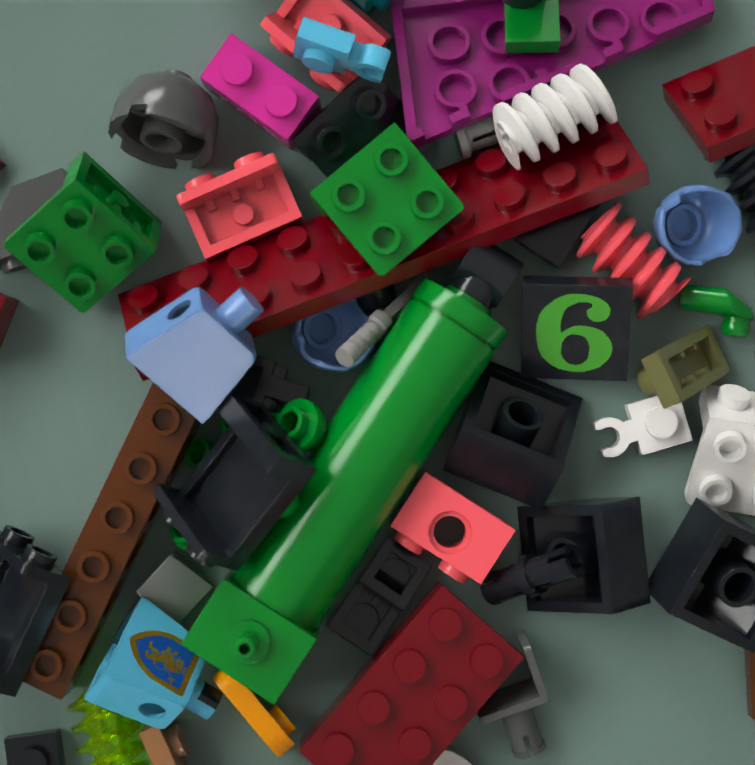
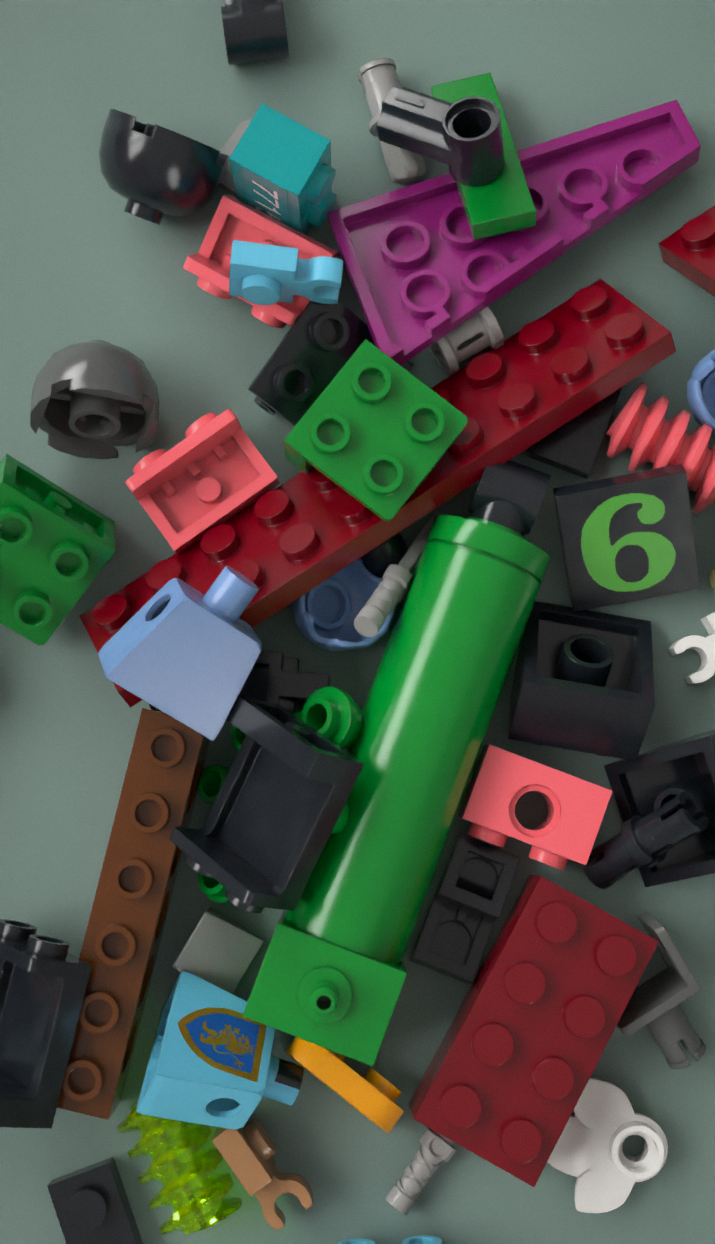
camera: 15 degrees left, 5 degrees down
(260, 90) = (199, 344): dark pink brick -> none
(550, 112) = (542, 290): white piece -> none

